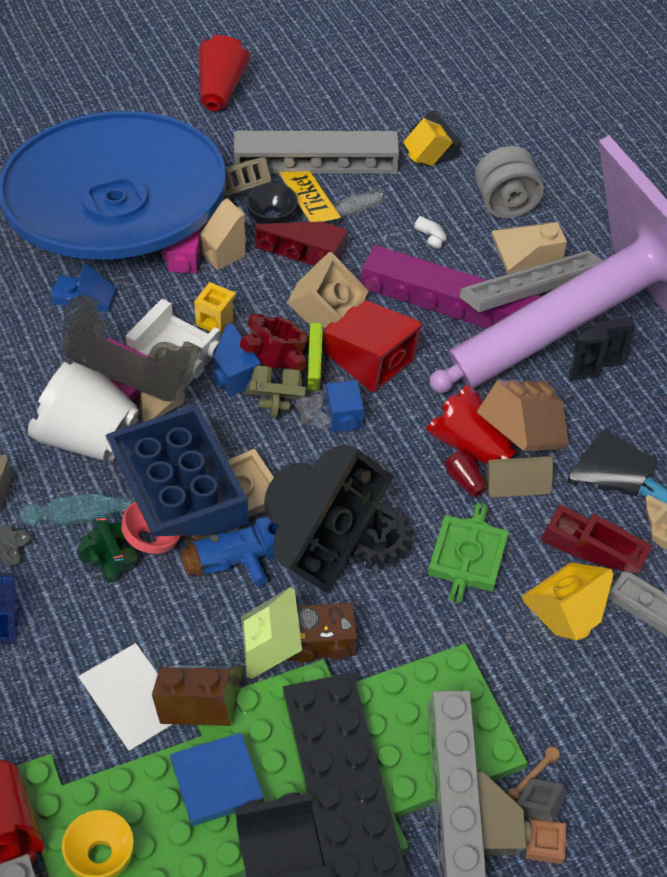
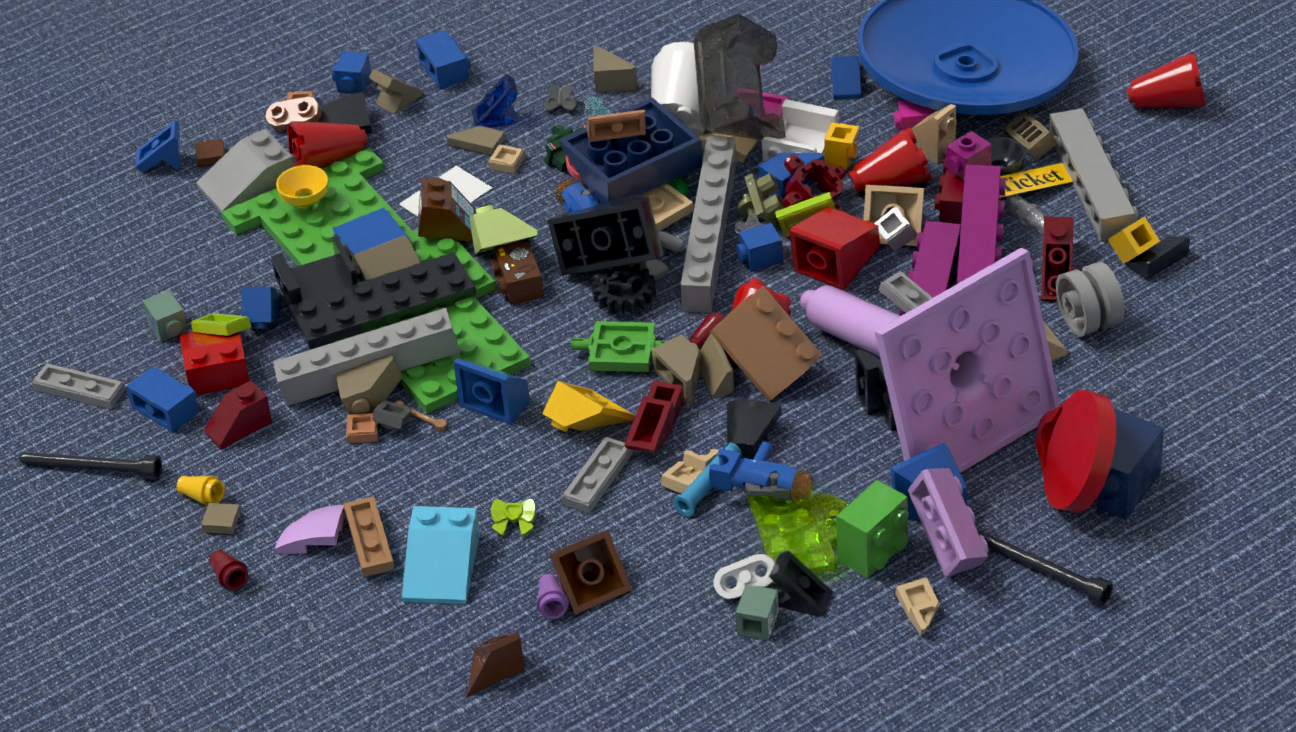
camera: 85 degrees right, 10 degrees down
(45, 641) = (477, 139): none -> dark tan tile
(92, 618) = (506, 159): none -> tan tile
(158, 470) = (616, 125): none -> nougat slope
(260, 273) = (892, 164): none -> red cone
(275, 763) = (386, 258): none -> dark tan slope
(292, 211) = (967, 150): none -> magenta brick
(296, 438) = (708, 225): none -> light grey brick
(353, 293) = (895, 229): none -> light grey slope
(400, 231) = (980, 219): none -> magenta brick
(425, 197) = (1056, 253): none -> dark red slope
(518, 504) = (678, 364): none -> dark tan slope
(533, 678) = (490, 391): none -> blue slope

